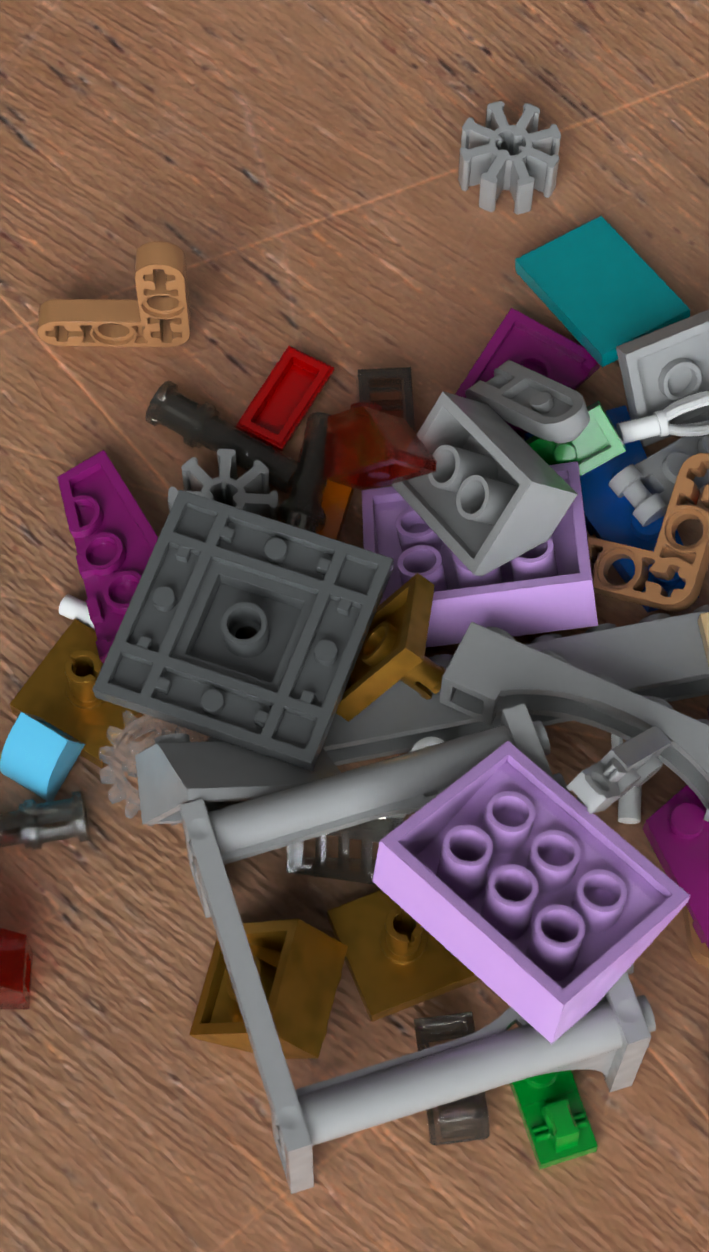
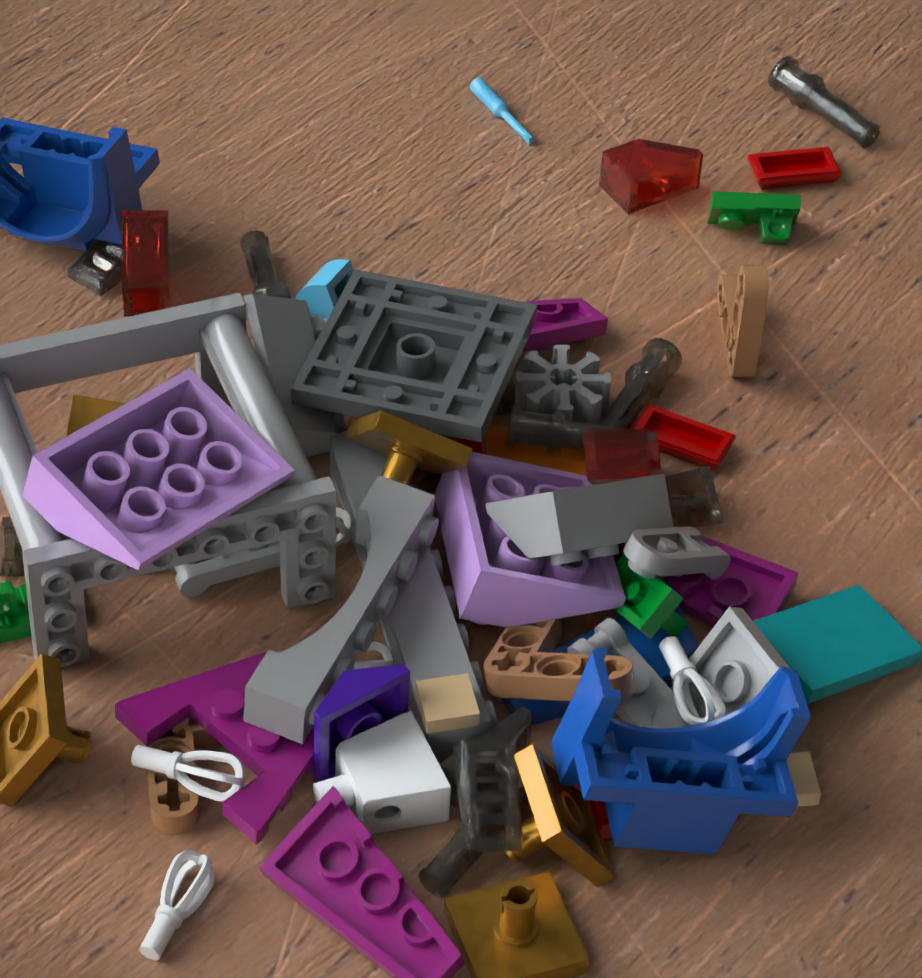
camera: 85 degrees right, 20 degrees down
(620, 770) = (279, 559): light grey hinge -> none

